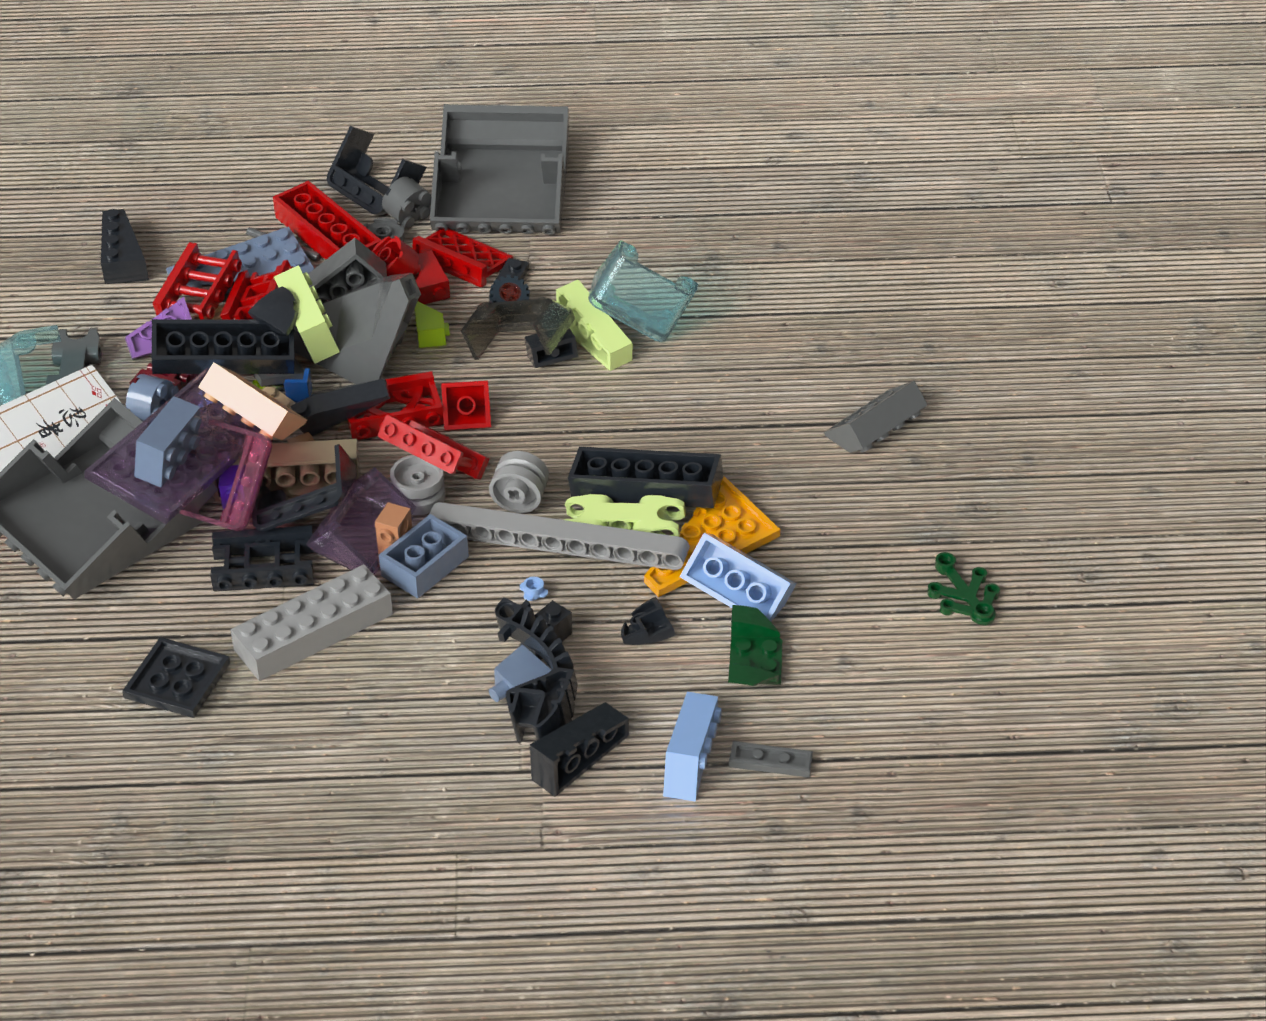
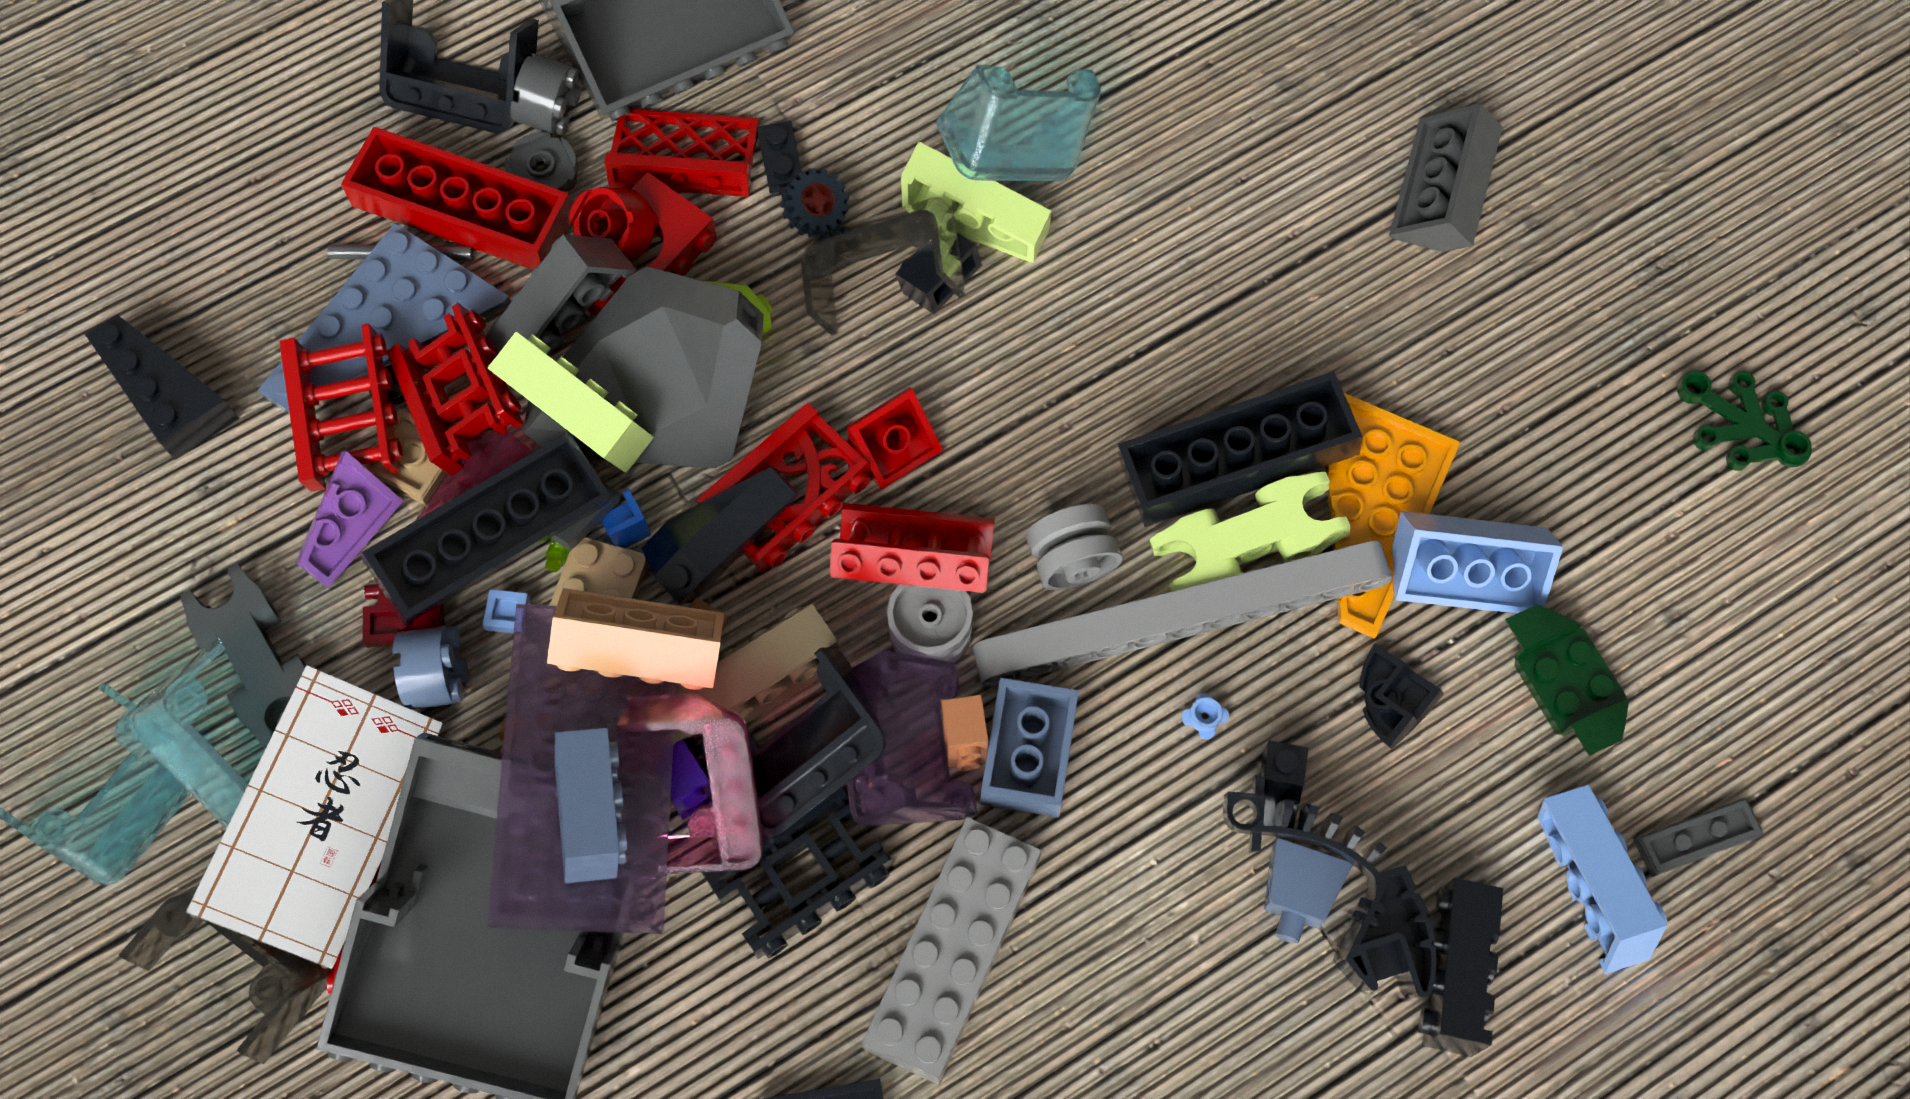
camera: 30 degrees left, 25 degrees up
(276, 310) = (541, 433): black brick -> none

